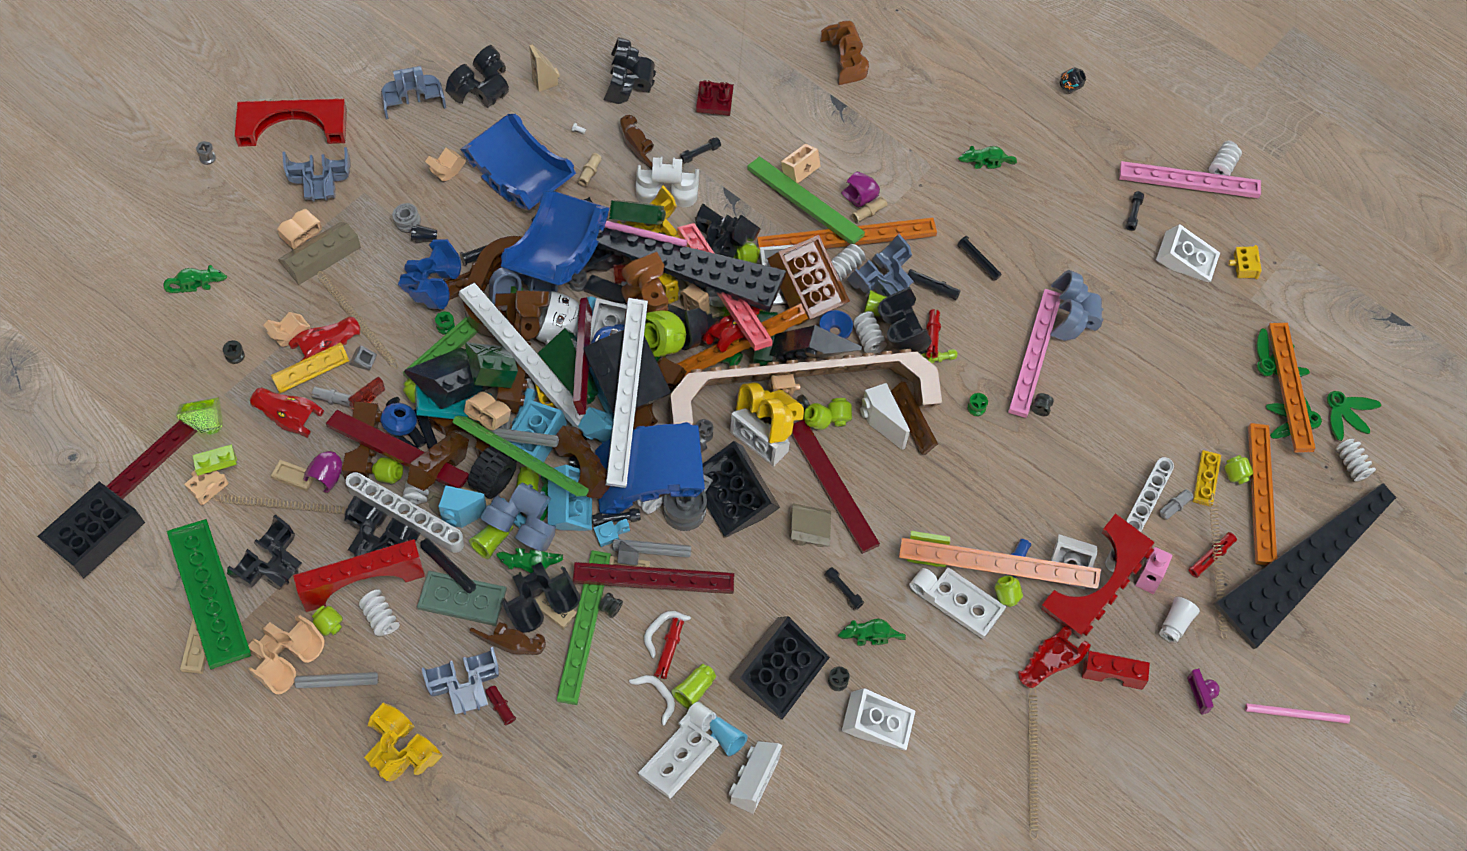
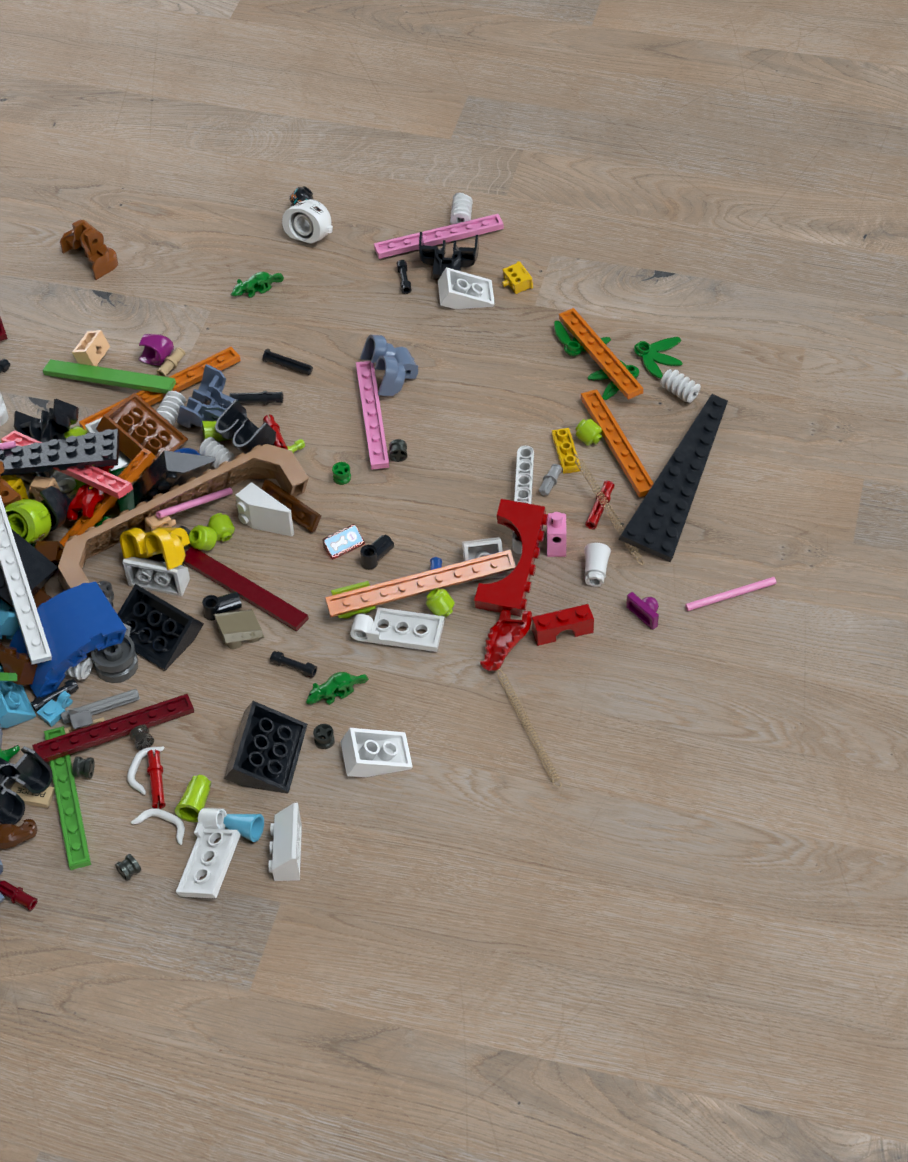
camera: 20 degrees left, 10 degrees down
(607, 726) = (128, 867): none -> pearl dark grey wheel
(674, 599) = (141, 736): none -> clear smoke wheel
(805, 495) = (222, 604): none -> black piece
(825, 376) = (192, 503): none -> bright pink piece
(946, 480) = (343, 541): none -> slope
(973, 504) = (372, 553): none -> black piece
(1067, 110) = (307, 221): none -> white piece
(1175, 204) = (435, 257): none -> black piece

